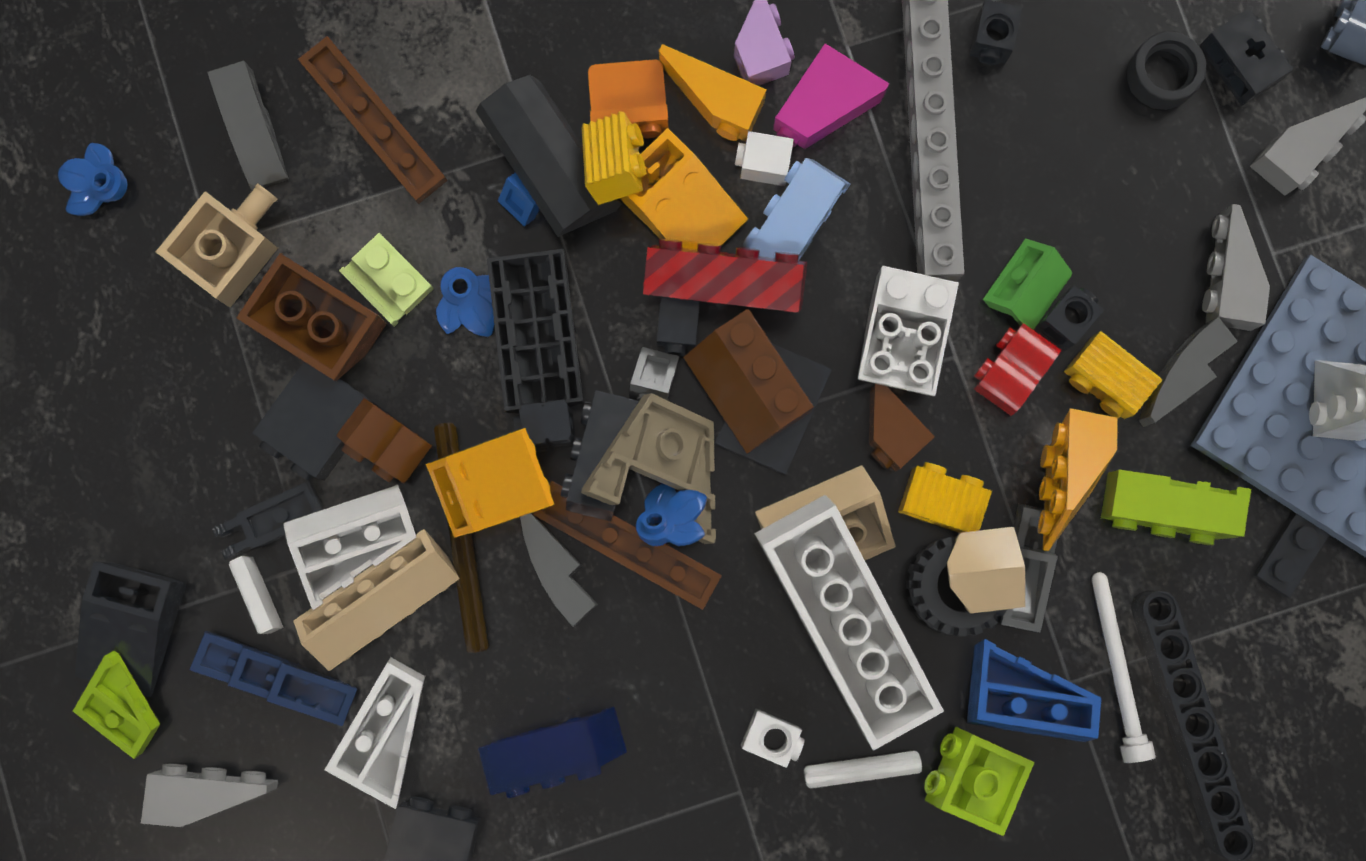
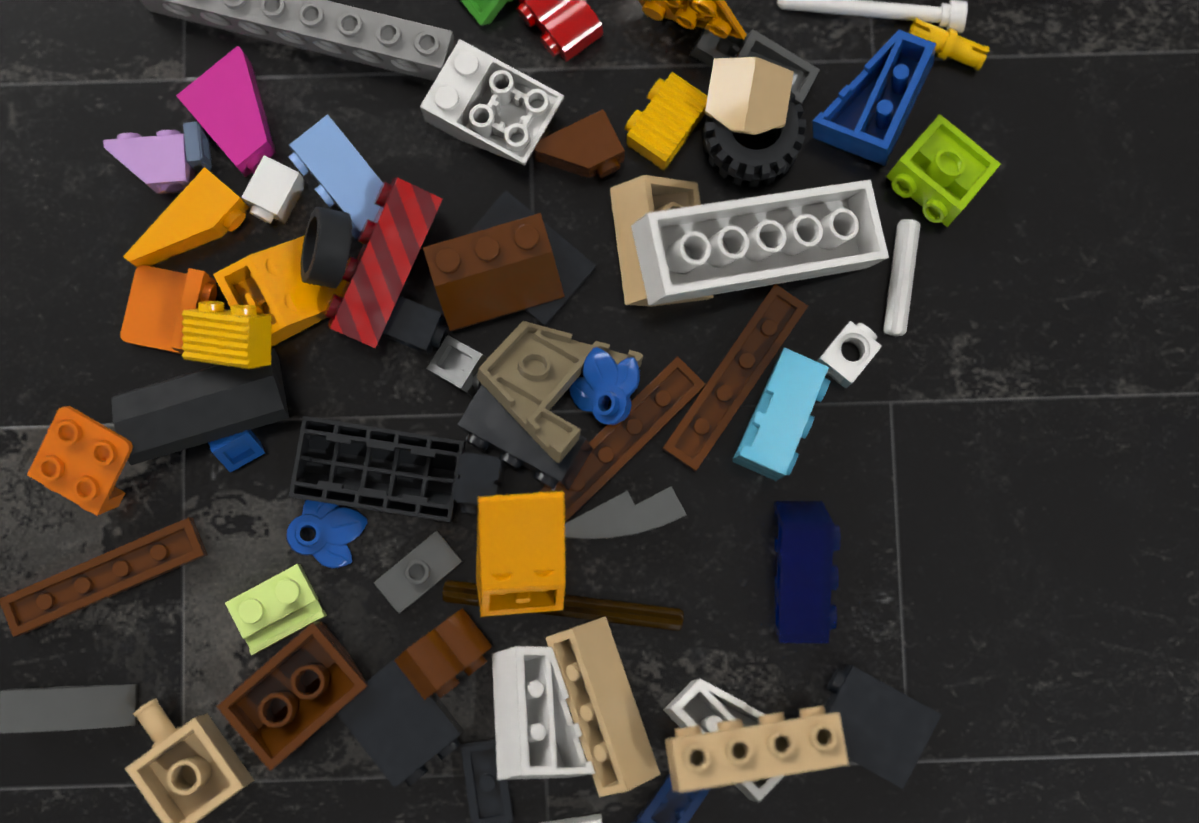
camera: 75 degrees left, 0 degrees up
(367, 753) = (755, 751): none -> tan brick
(455, 396) = (418, 572): none -> dark grey plate
(465, 68) = (82, 461): none -> orange bracket
(694, 691) = (782, 415): none -> medium azure wedge
(718, 636) = (735, 377): none -> reddish brown plate
(721, 221) = (326, 247): none -> black tyre
(784, 77) = (197, 146): none -> sand blue tile
(1107, 751) = (950, 44): none -> yellow pin

